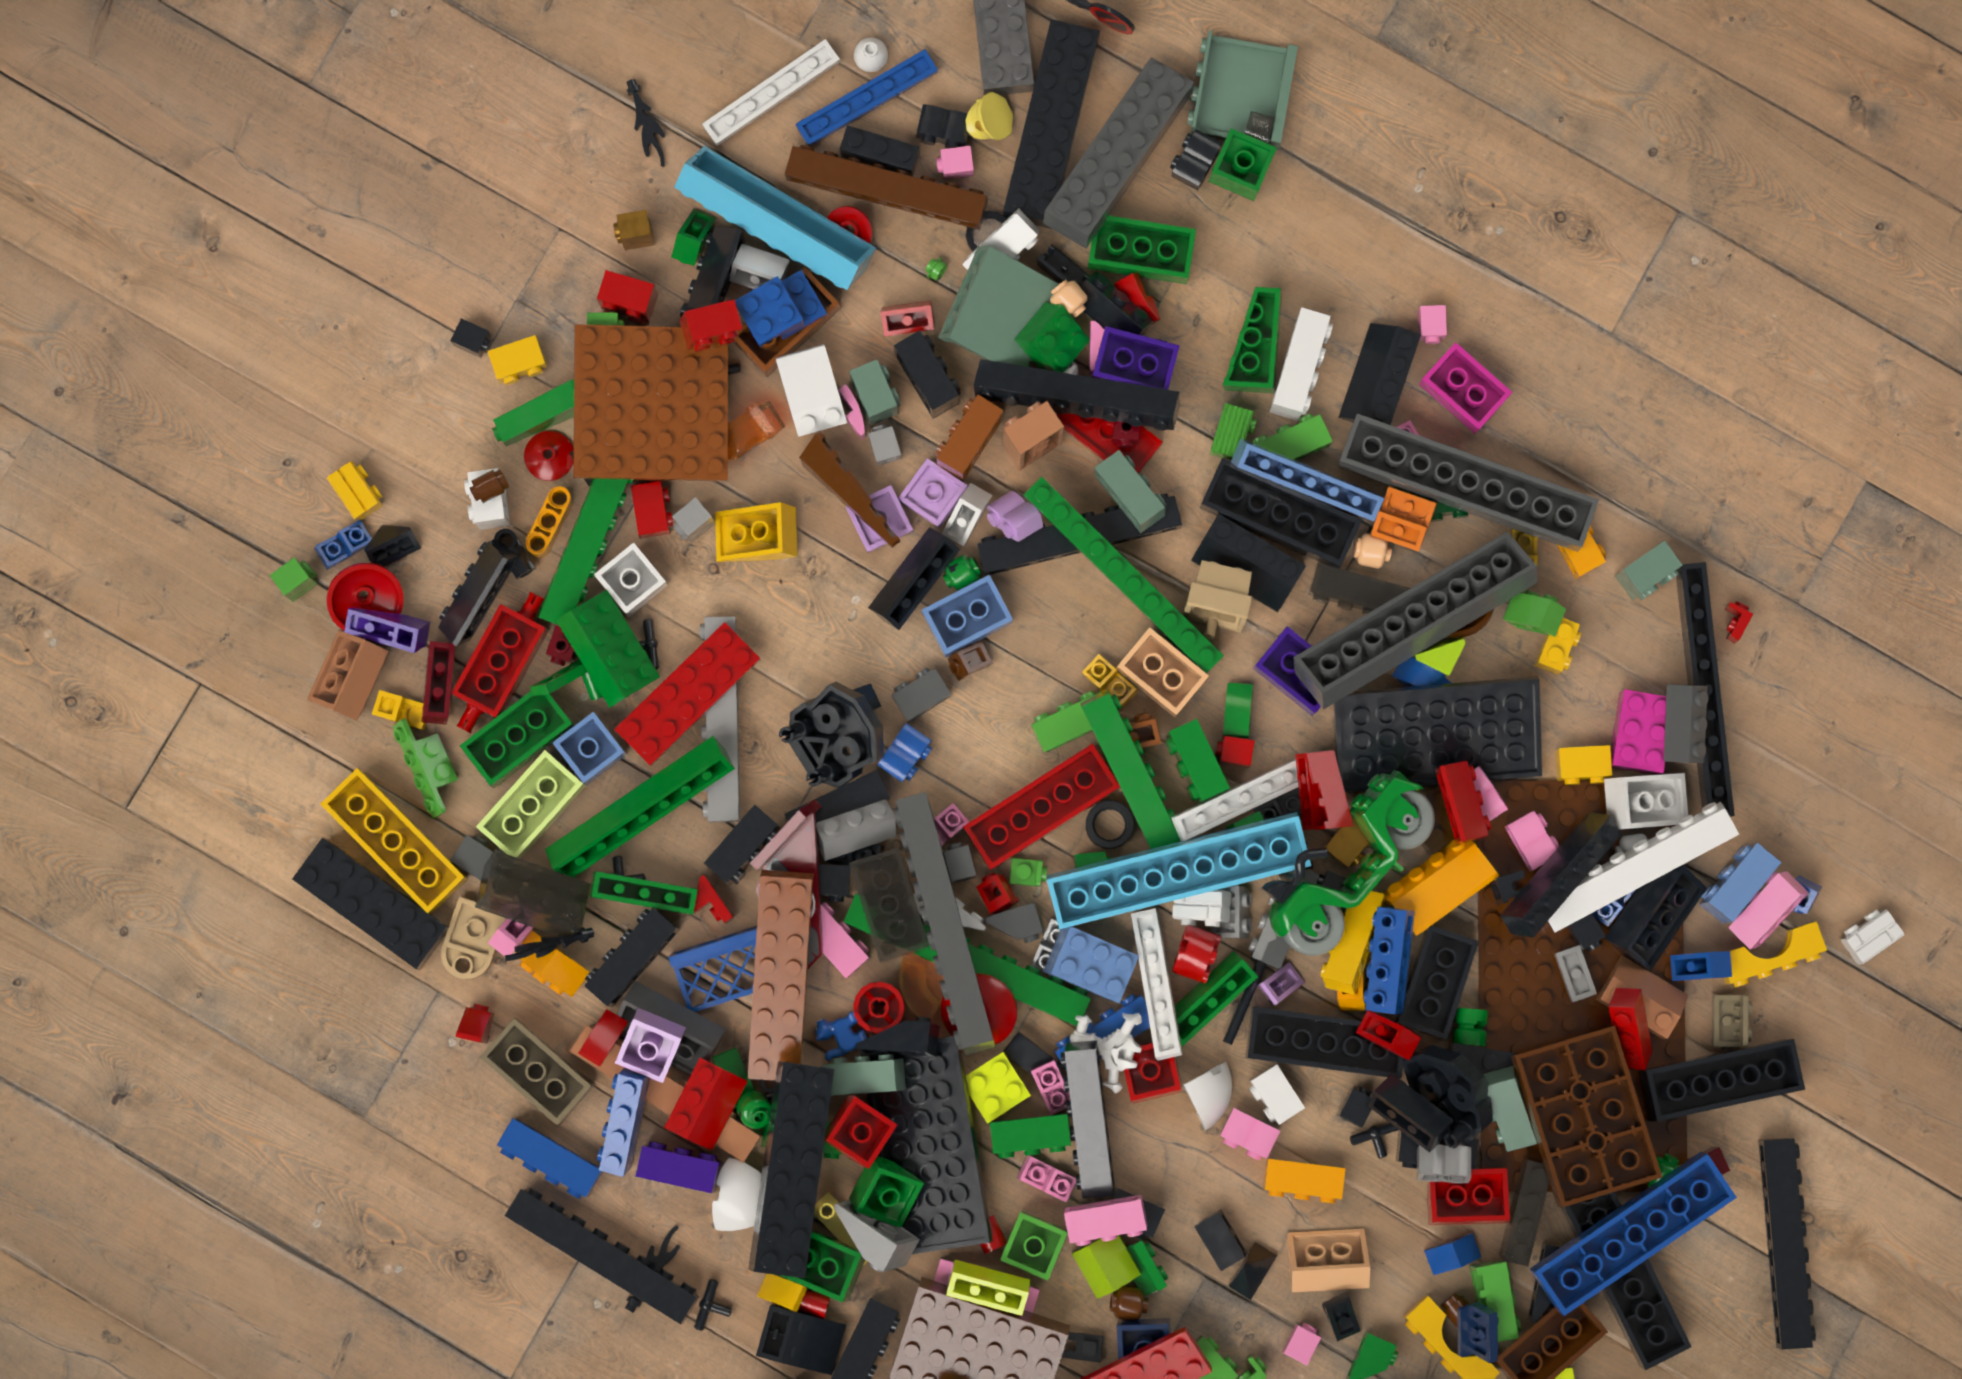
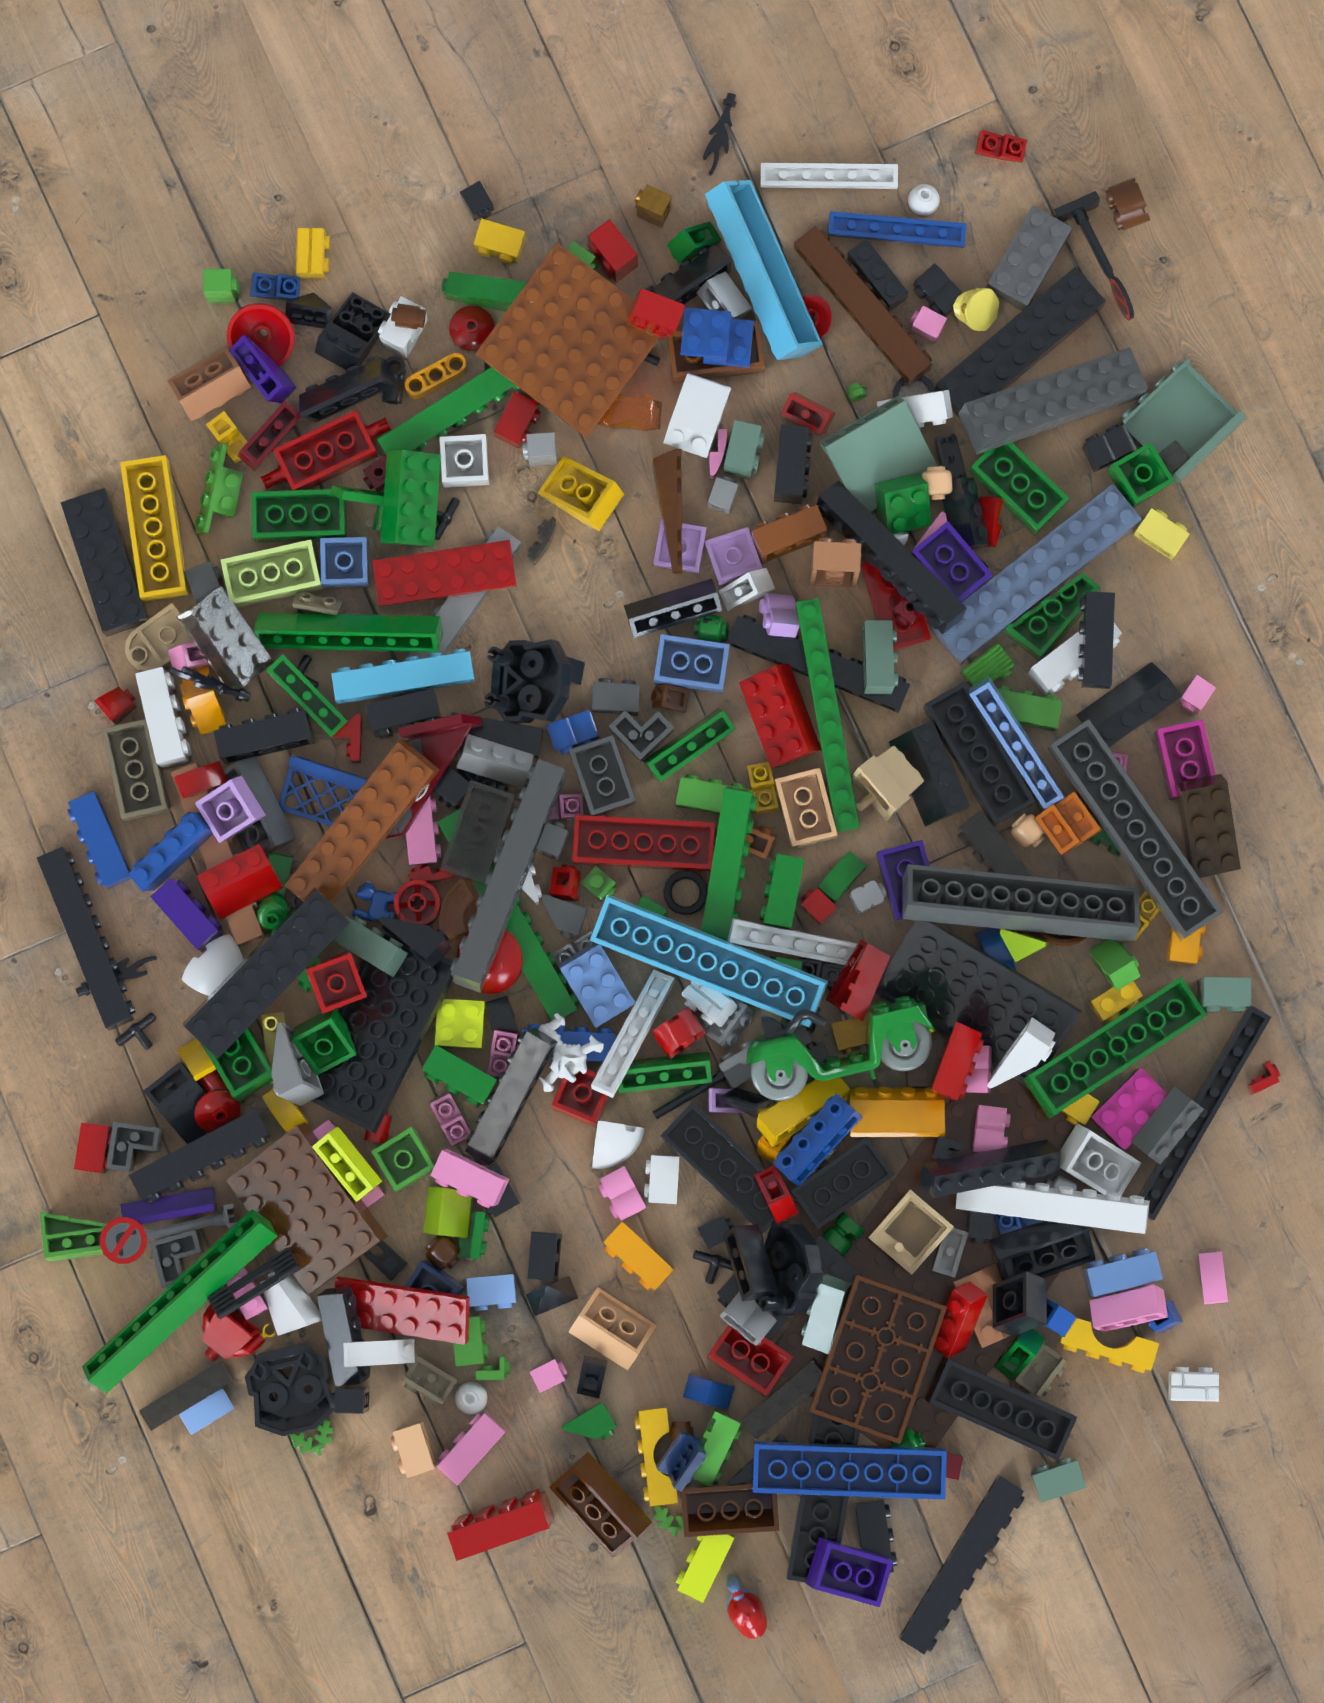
camera: 40 degrees right, 0 degrees up
(444, 536) = (351, 332): none -> black slope
(526, 1006) = (162, 717): none -> white brick
(584, 809) = (310, 604): none -> dark tan bracket
(719, 814) = (403, 677): none -> medium azure brick
(751, 594) = (545, 534): none -> clear smoke slope
(826, 1323) = (212, 1104): none -> red dish
(866, 976) = (424, 873): none -> red slope
(896, 1281) = (284, 1111): none -> yellow slope
(961, 774) = (602, 776): none -> dark grey brick
(972, 716) = (638, 739): none -> dark grey brick
(1017, 690) = (689, 745): none -> green brick
(1080, 606) = (780, 715): none -> red brick
(1197, 1305) = (491, 1291): none -> light blue brick
(1216, 313) = (1039, 572): none -> sand blue brick
(1275, 712) = (867, 897): none -> light grey brick
(1298, 202) = (1162, 533): none -> light yellow brick
(1300, 971) = (746, 1101): none -> black slope
(1315, 338) = (1097, 640): none -> black brick
(1515, 751) = (1025, 1053): none -> white slope
(1528, 432) = (1208, 825): none -> dark brown brick
(1532, 981) = (911, 1232): none -> tan piece
(1589, 688) = (1115, 1047): none -> green brick
(1672, 976) = (1019, 1304): none -> black brick
(1693, 1275) = (873, 1528): none -> black brick
(1697, 1323) = (849, 1572): none -> dark purple brick
(1701, 1018) = (1020, 1353): none -> green slope
(1815, 1106) = (1058, 1479): none -> sand green brick
(1820, 829) = (1213, 1277): none -> bright pink slope

